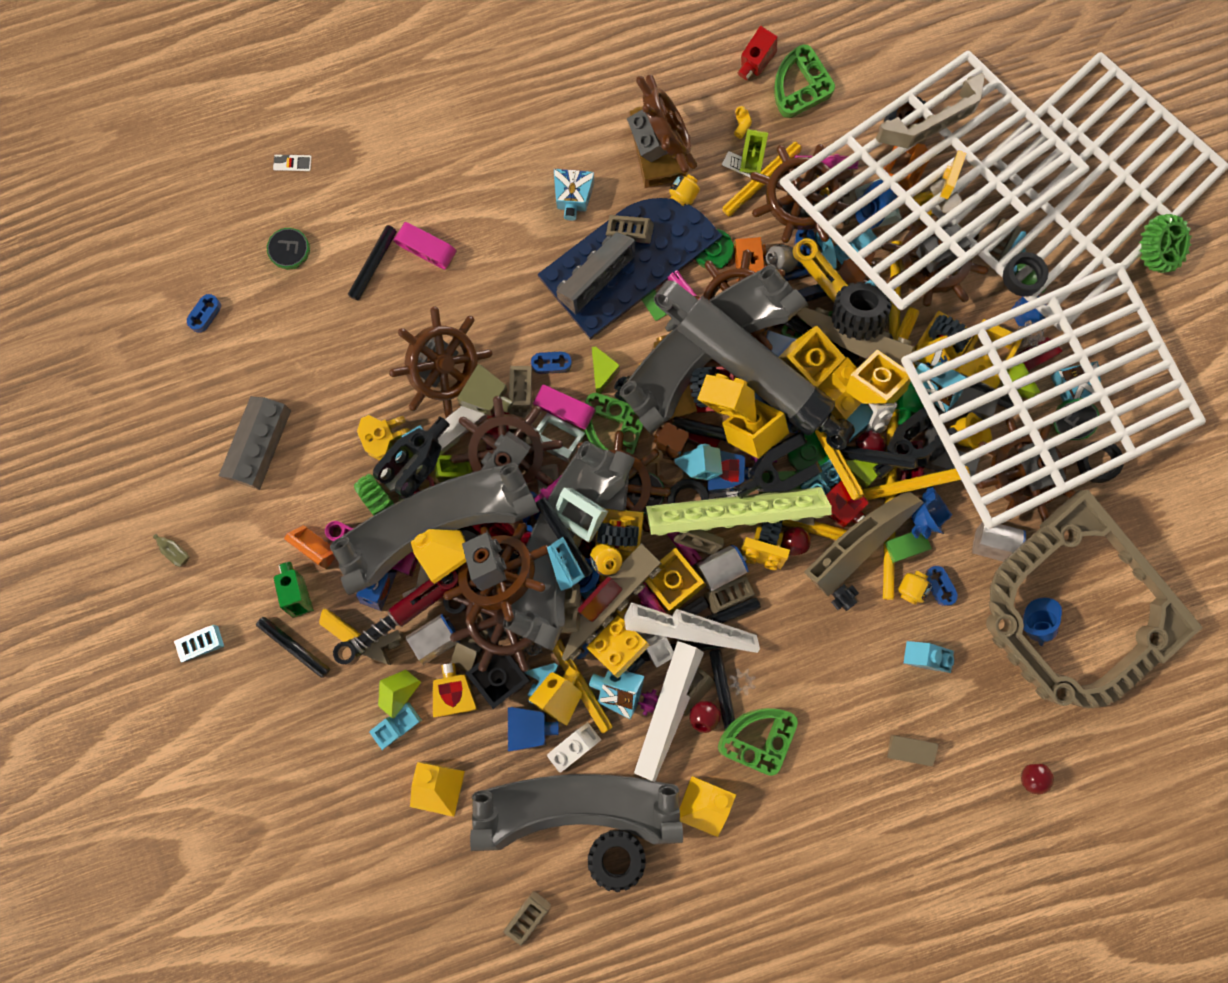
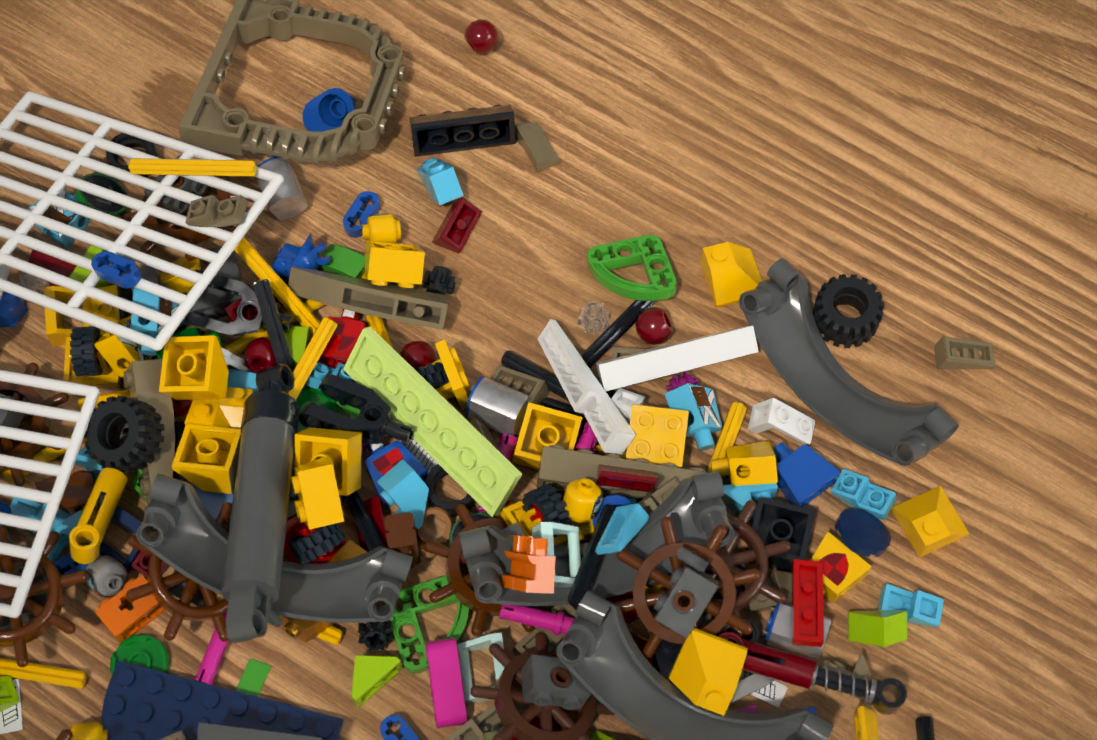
camera: 130 degrees left, 15 degrees down
(438, 651) = (807, 603): none -> red plate
(460, 733) = (862, 532): none -> dark blue tile
(486, 760) = (863, 495): none -> medium azure slope
(503, 582) = (692, 558): none -> black tile
(575, 482) = (530, 566): none -> orange hips
(877, 571) = (393, 263): none -> yellow slope
(884, 645) = (457, 225): none -> dark red slope
(962, 703) = (462, 130): none -> black slope
(985, 367) = (113, 274): none -> blue beam
(987, 462) = (215, 213): none -> dark tan slope
(1041, 474) = (197, 167): none -> yellow axle

